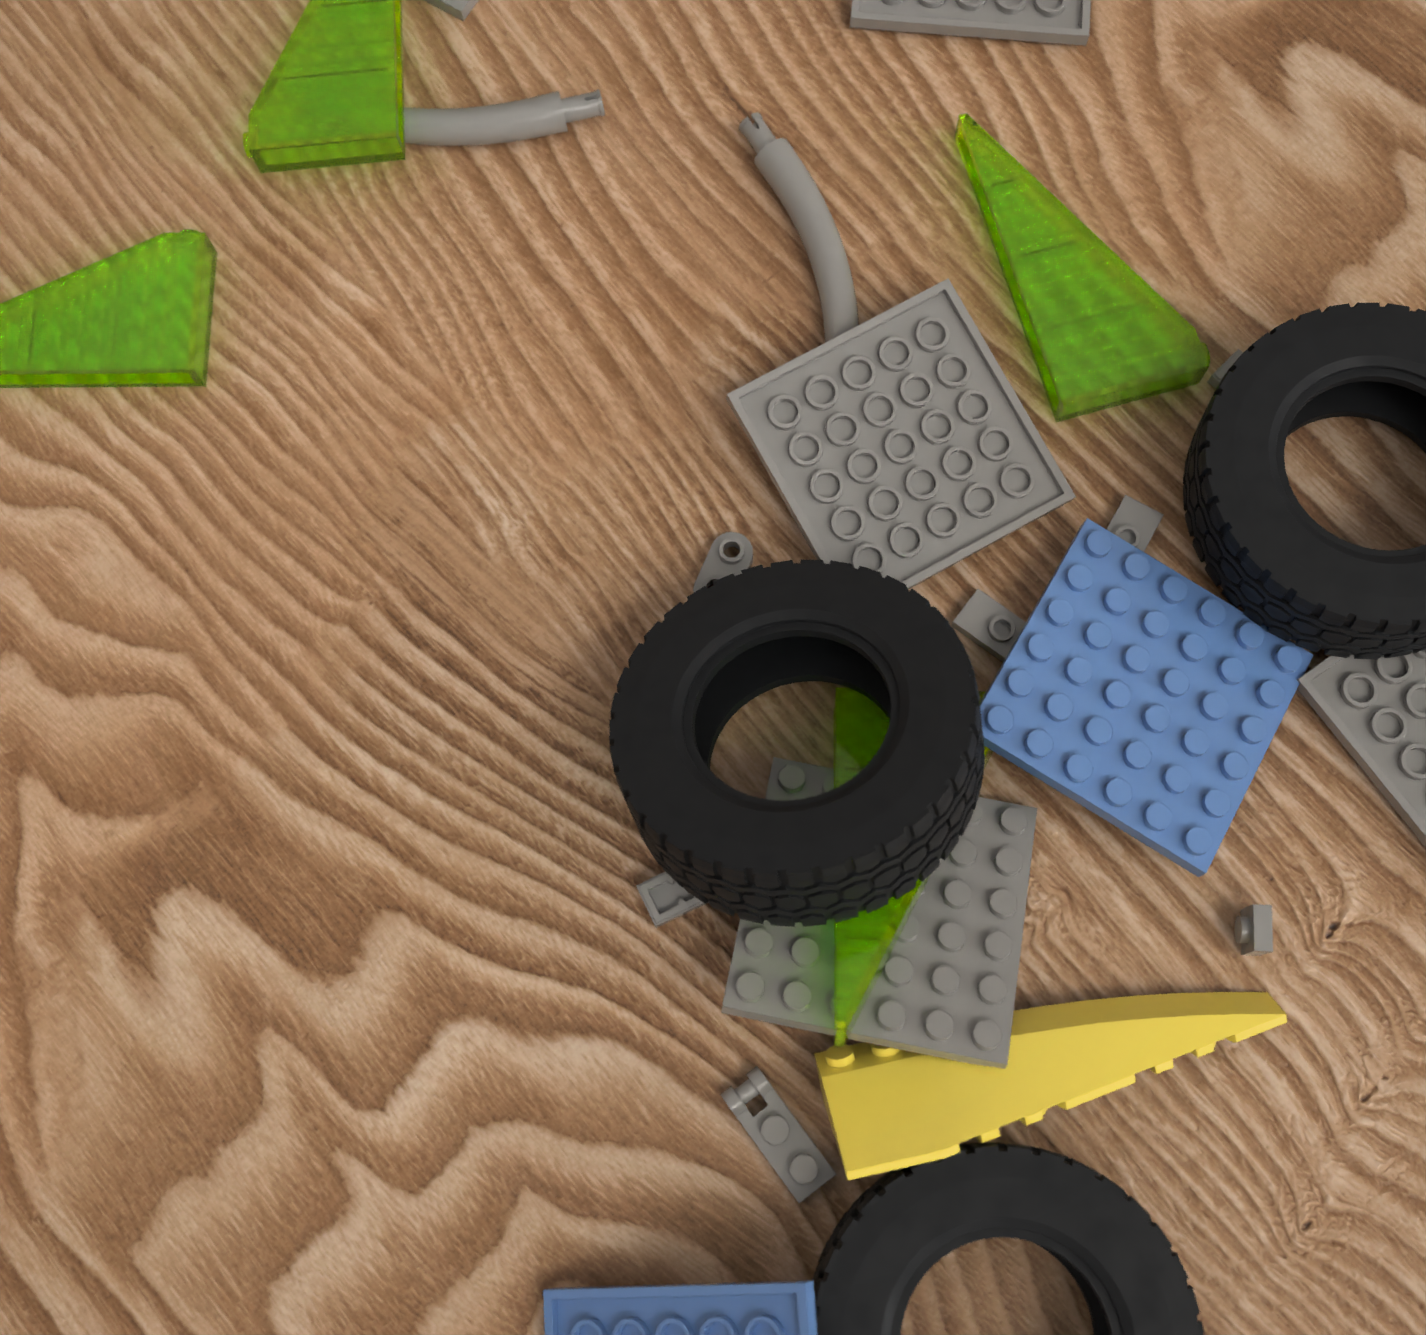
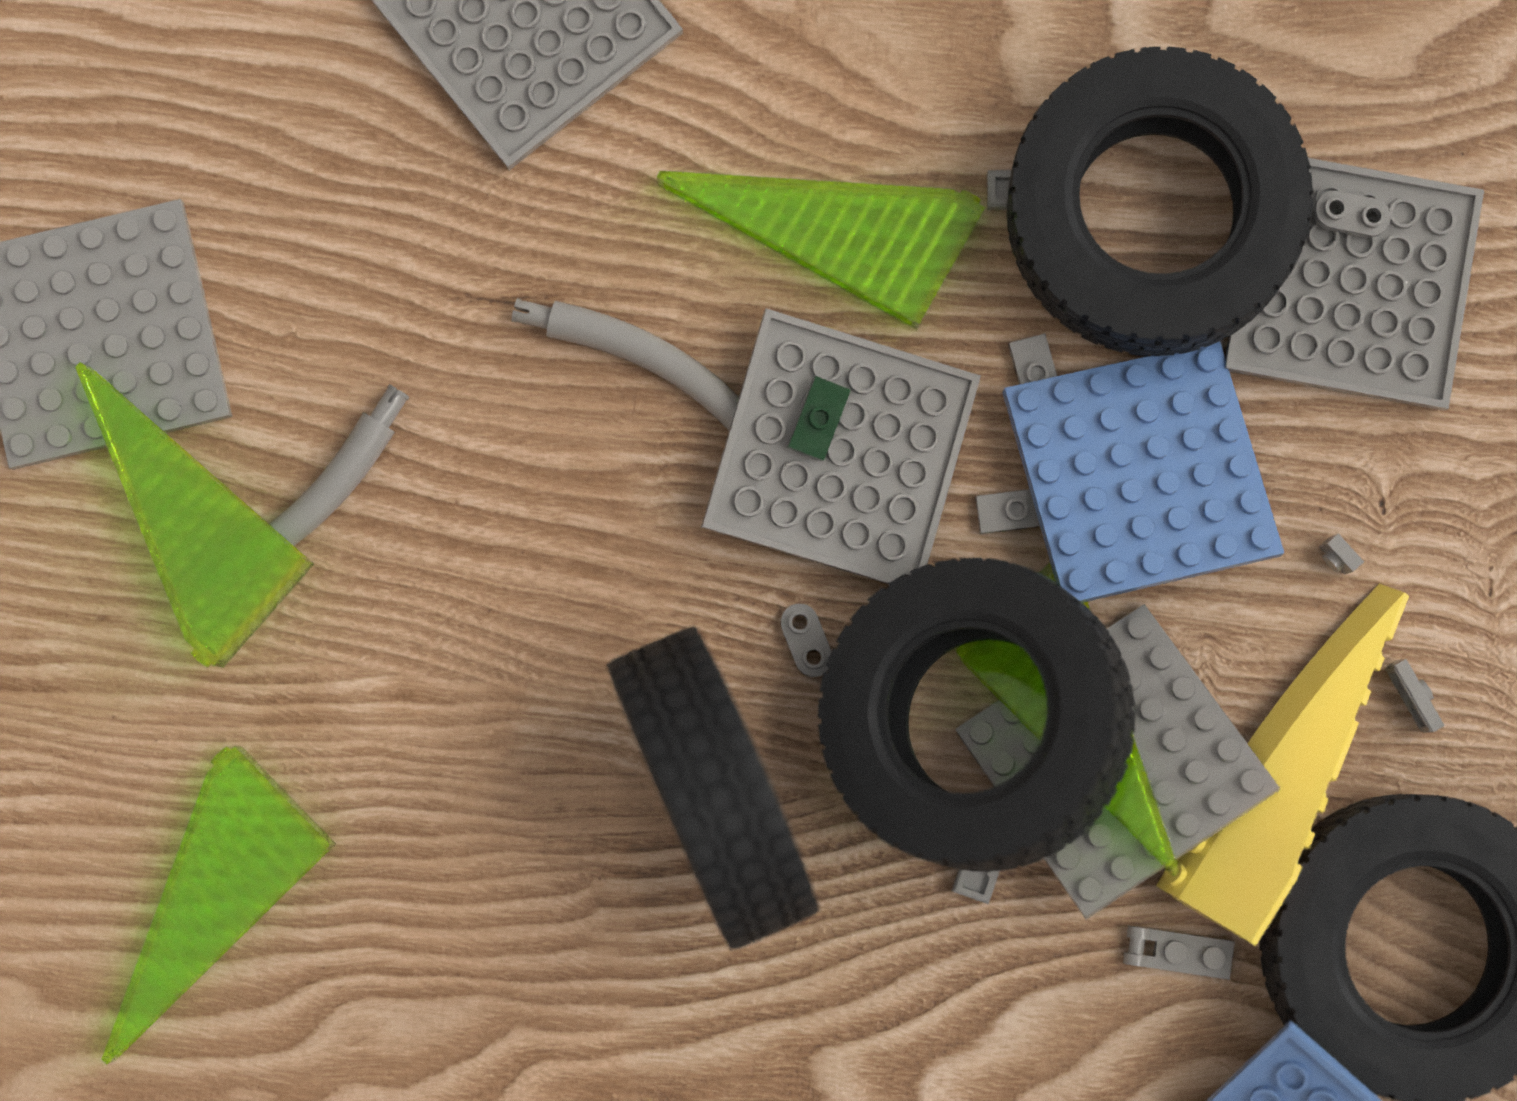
camera: 50 degrees left, 10 degrees up
(504, 564) = (714, 787): none -> black tyre
(906, 398) = (818, 418): none -> dark green plate
(1210, 1118) = (1415, 695): none -> light grey plate

